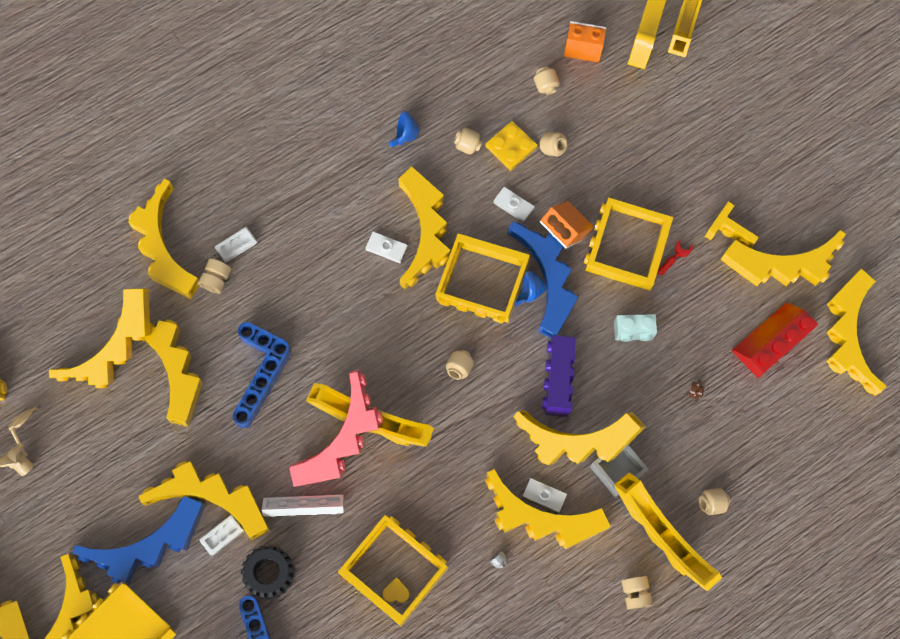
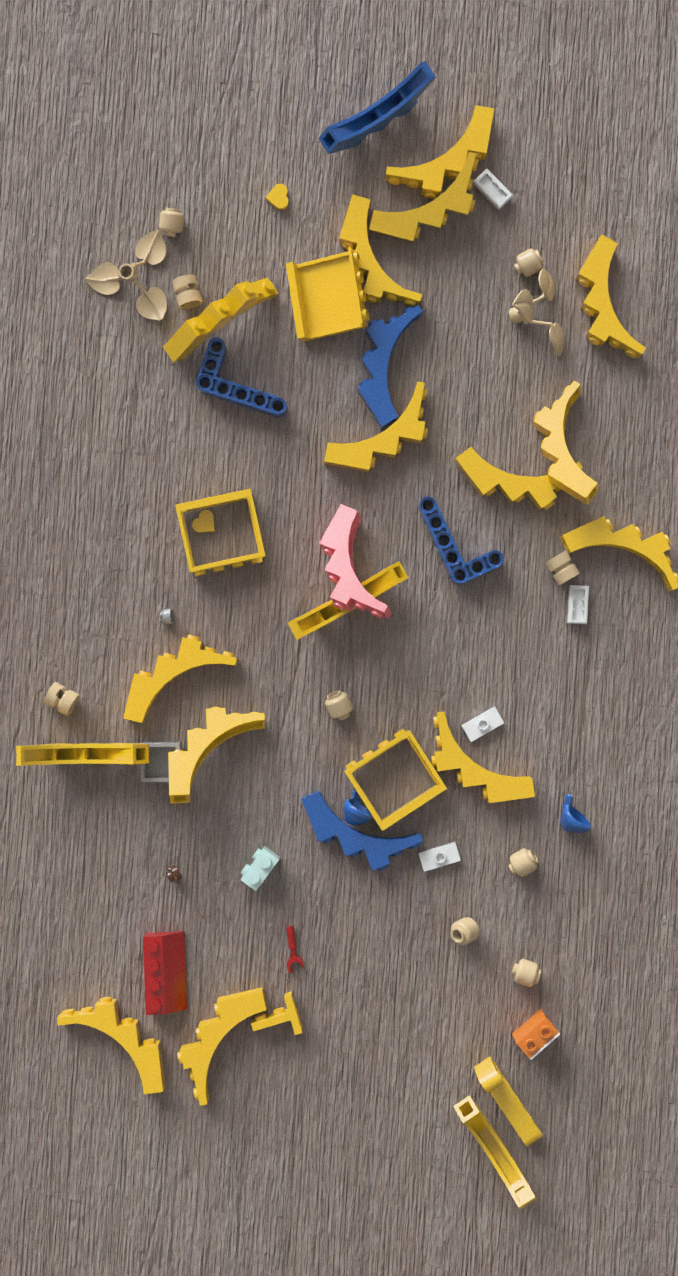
camera: 130 degrees right, 15 degrees up
(221, 535) = (347, 424): white plate -> none
(252, 564) = (288, 422): black tyre -> none
(303, 505) = (322, 501): white plate -> none
(511, 145) = (492, 896): yellow plate -> none
(544, 495) = (187, 689): white plate -> none
(559, 376) = (268, 776): dark purple wedge -> none
(566, 224) = (385, 883): orange piece -> none
(622, 275) = (300, 930): yellow window -> none
(714, 501) = (80, 814): tan head -> none

